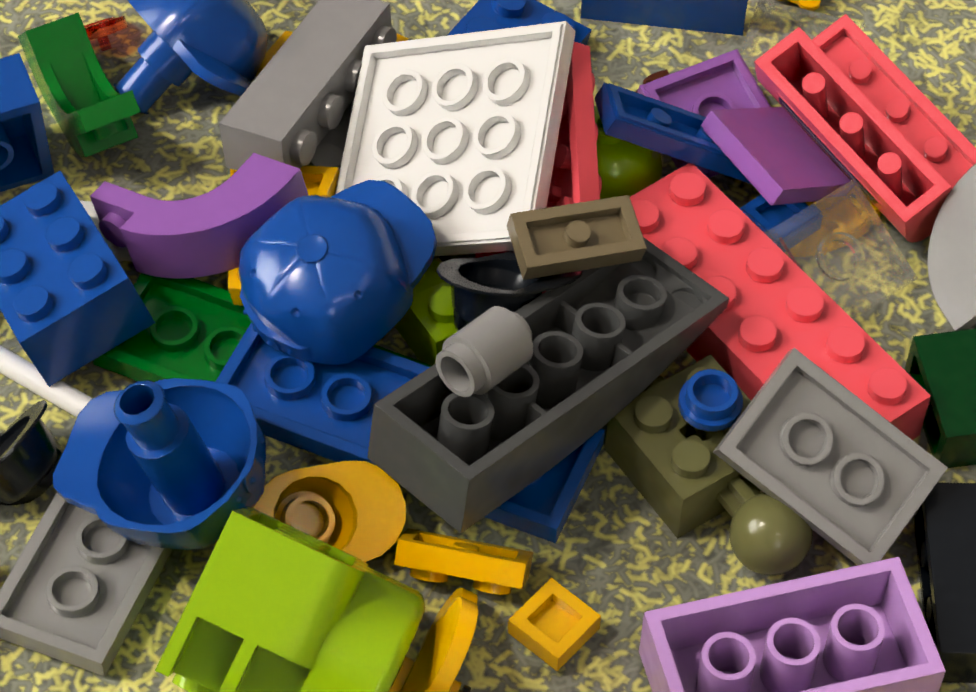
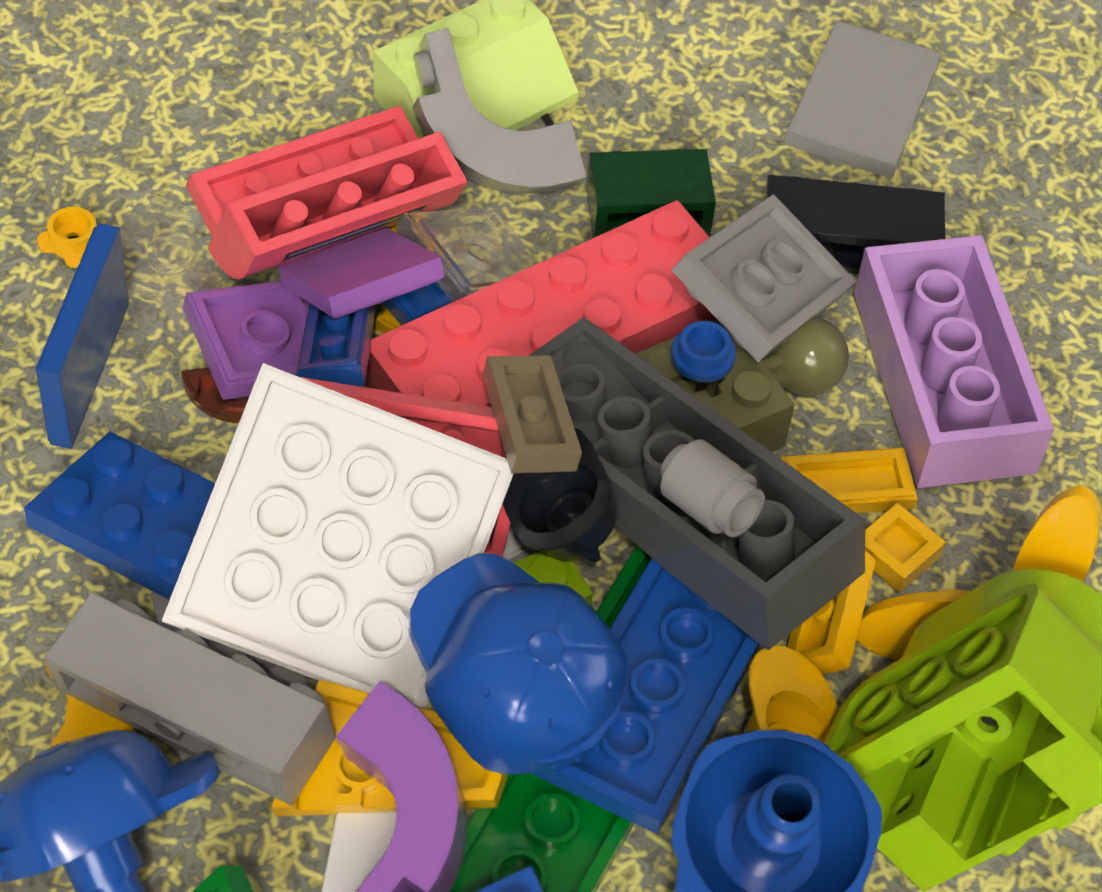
camera: 90 degrees left, 0 degrees up
(630, 580) = (861, 479): none -> yellow tile

